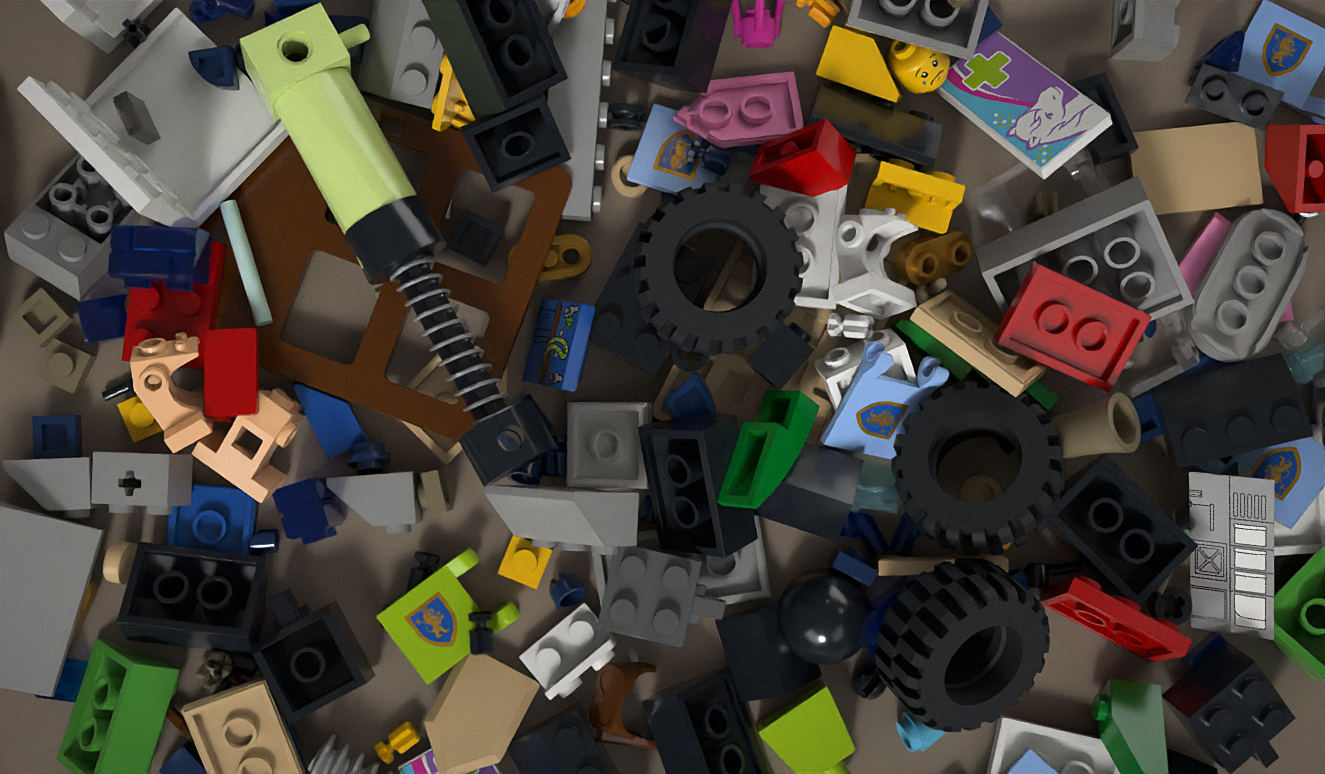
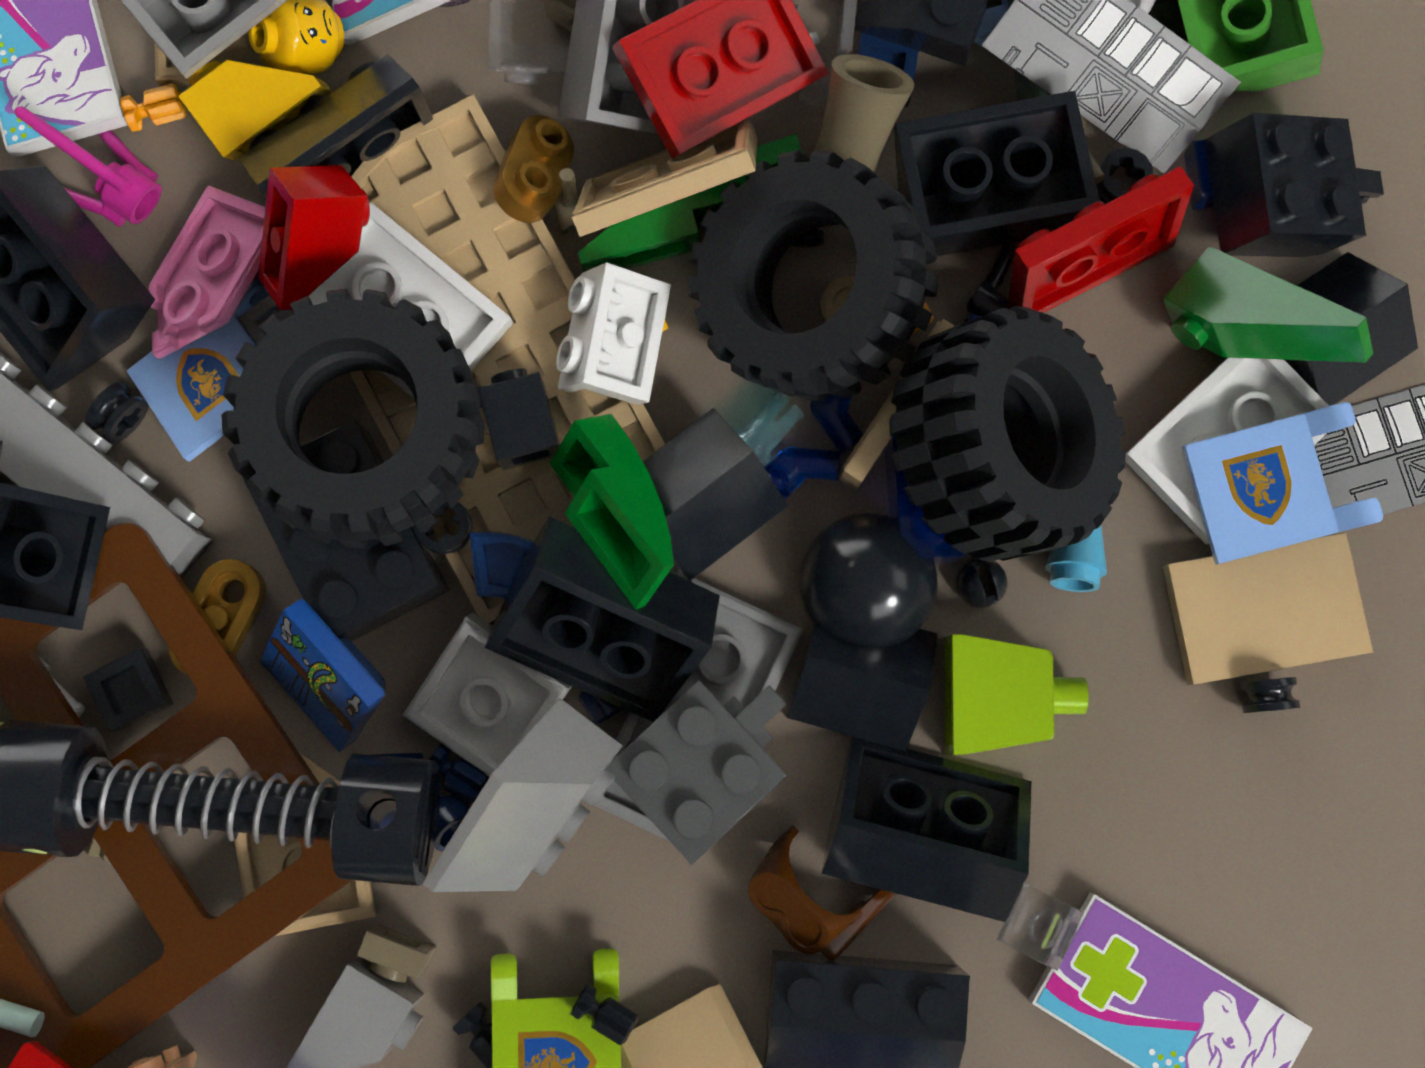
camera: 55 degrees left, 5 degrees down
(331, 419) = (217, 1022): blue slope -> none
(368, 457) = (295, 1006): dark blue plate -> none
(525, 562) = (558, 899): yellow plate -> none
(567, 590) = (628, 872): dark blue hinge -> none
(569, 651) = (702, 920): white bracket -> none
(619, 178) = (199, 470): tan tile -> none
(713, 157) = (229, 342): dark blue piece -> none
(851, 325) = (545, 312): white piece -> none
(854, 564) = (830, 504): dark blue plate -> none
(862, 270) = (496, 259): white tile -> none
(879, 404) = (658, 342): light blue flag -> none
(921, 197) = (442, 138): yellow bracket -> none

